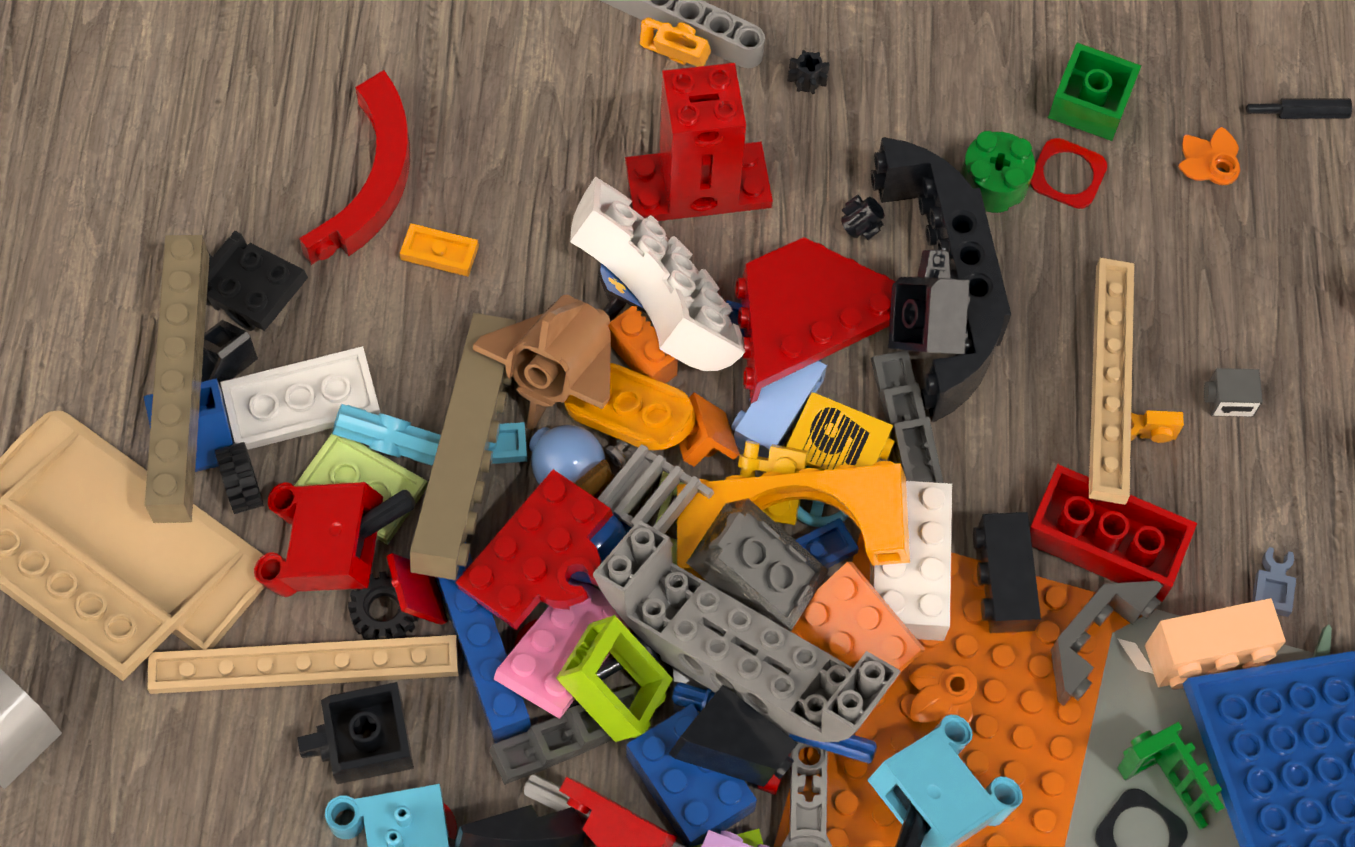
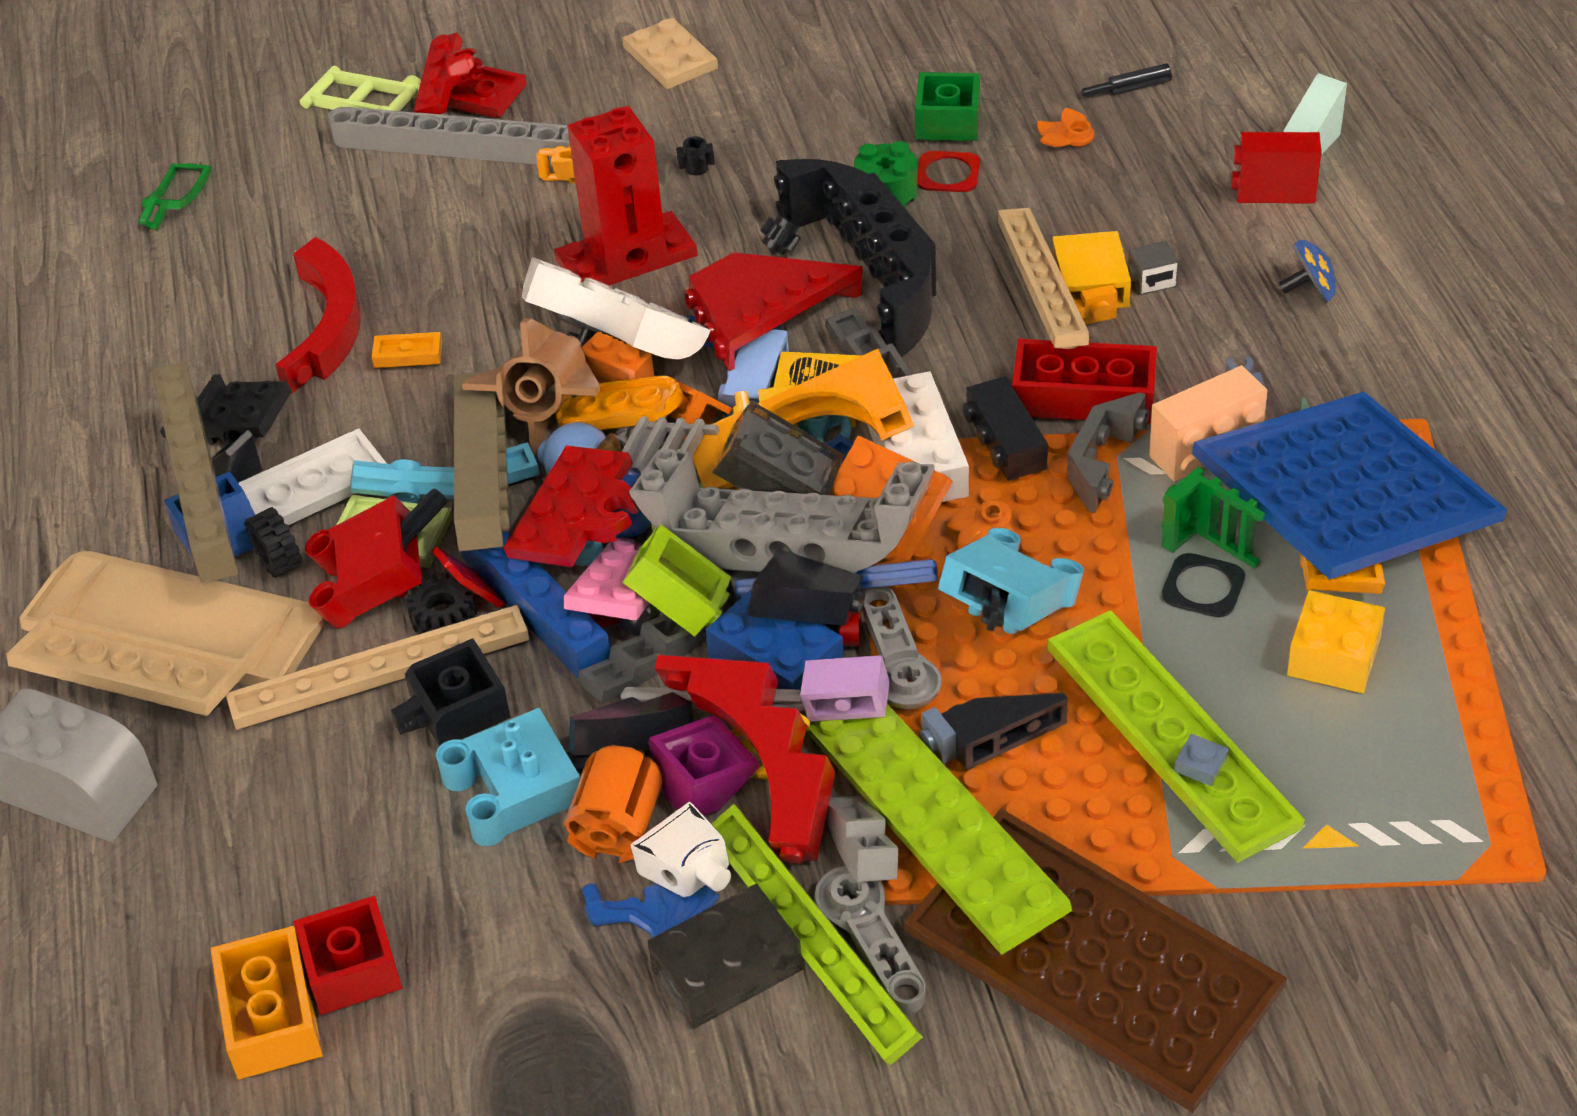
camera: 10 degrees left, 20 degrees down
(930, 308) = (863, 260): black hinge -> none
(1170, 371) = (1093, 262): none -> yellow brick

